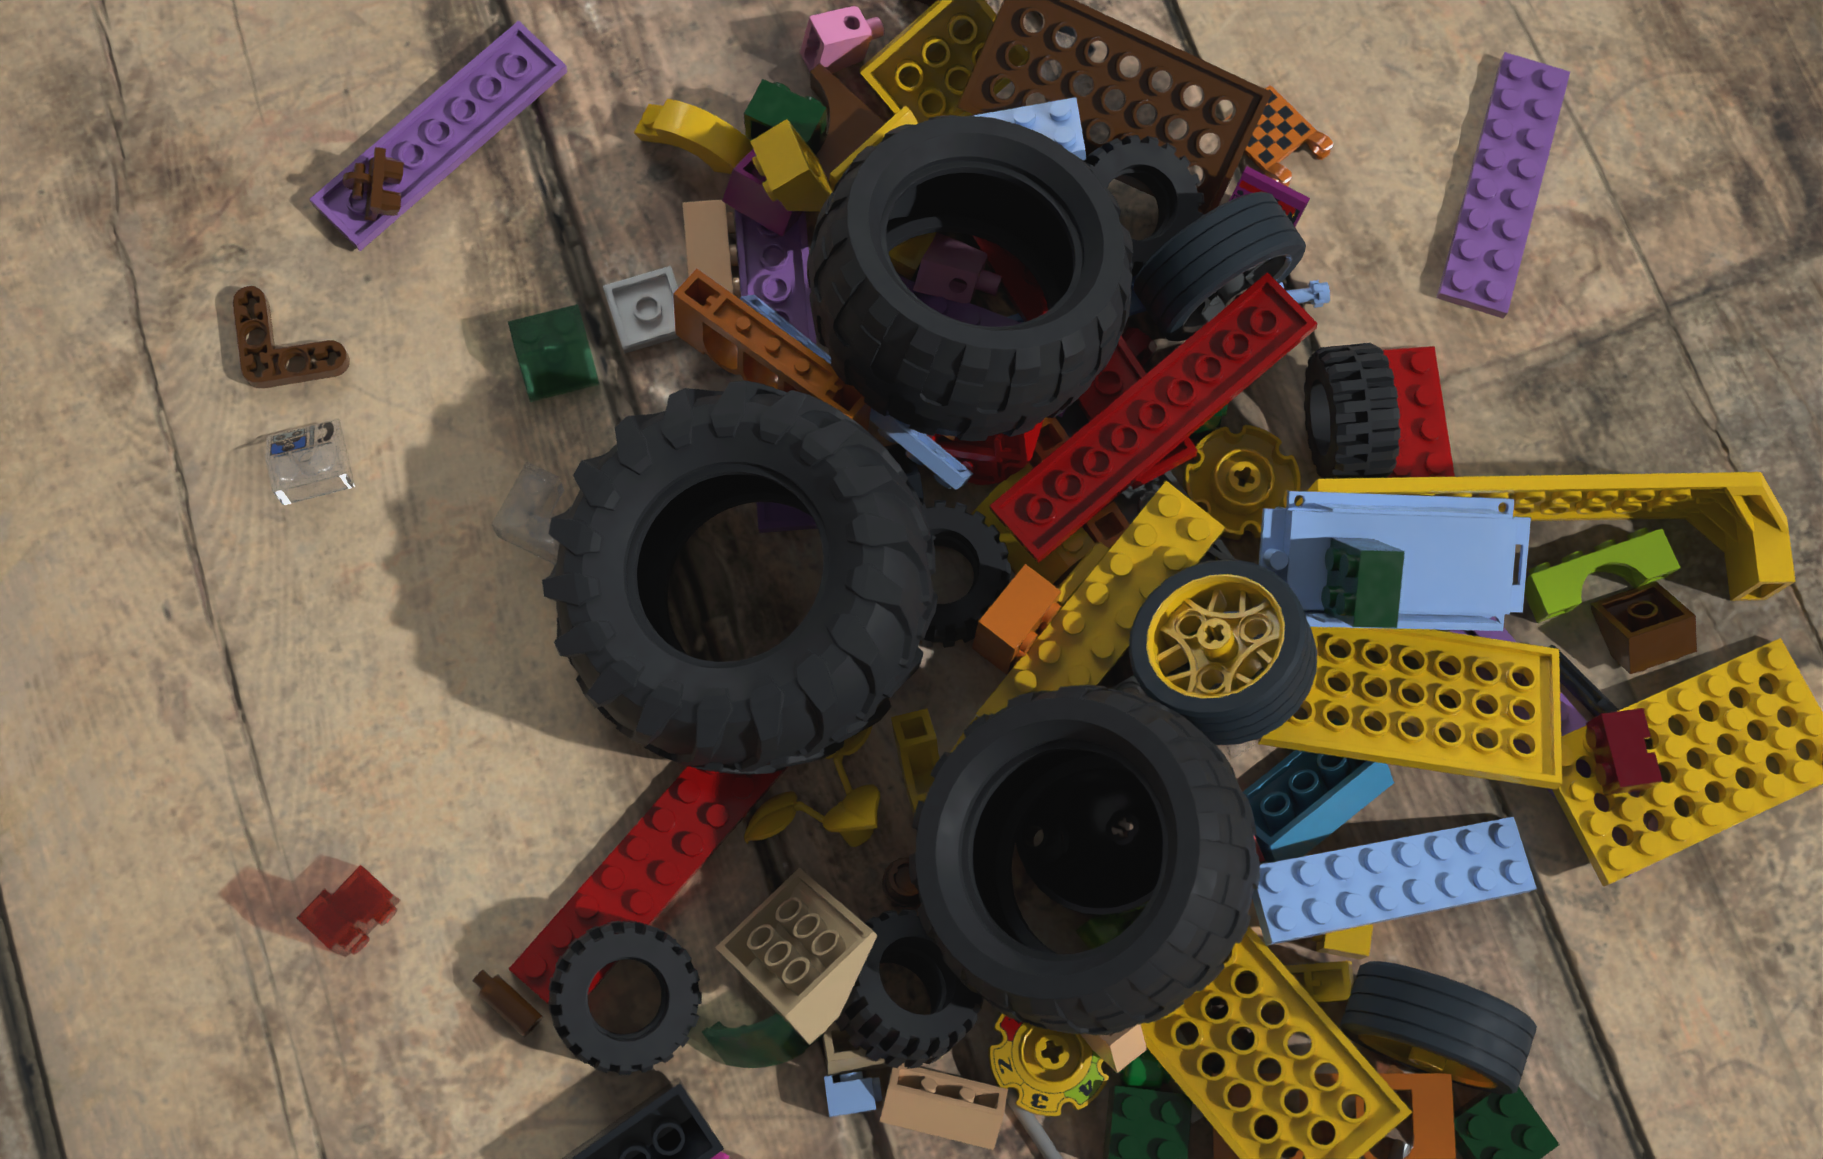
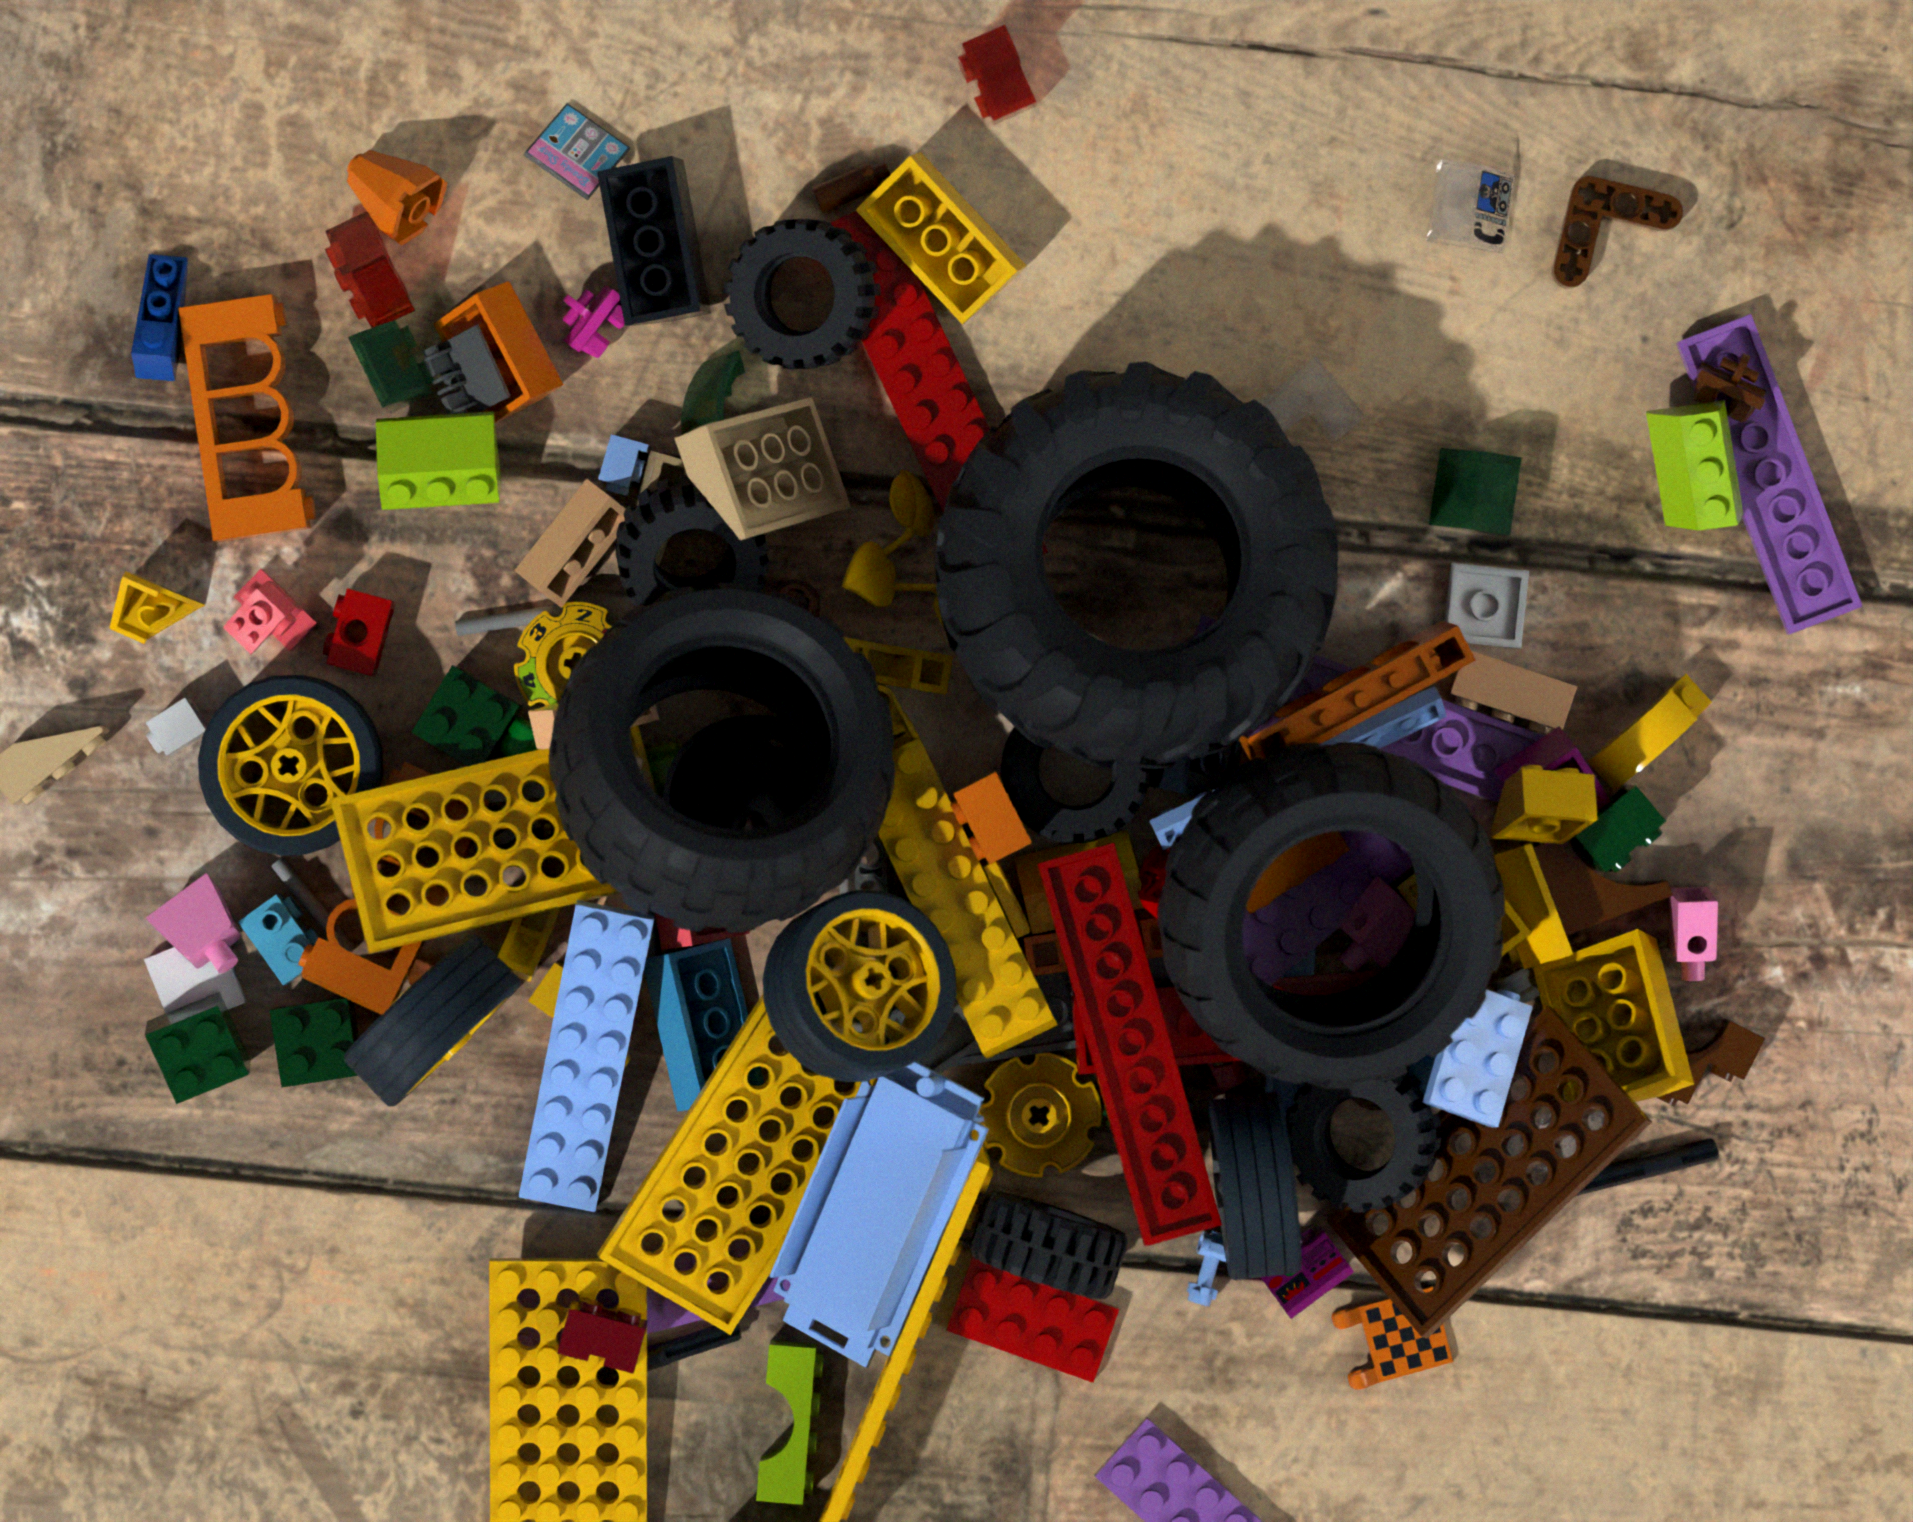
camera: 130 degrees right, 15 degrees up
(456, 184) = (1695, 466): none -> lime slope
(521, 896) = (941, 237): none -> yellow slope
(1363, 582) = (865, 1152): dark green brick -> none
(1645, 627) = (717, 1438): reddish brown slope -> none

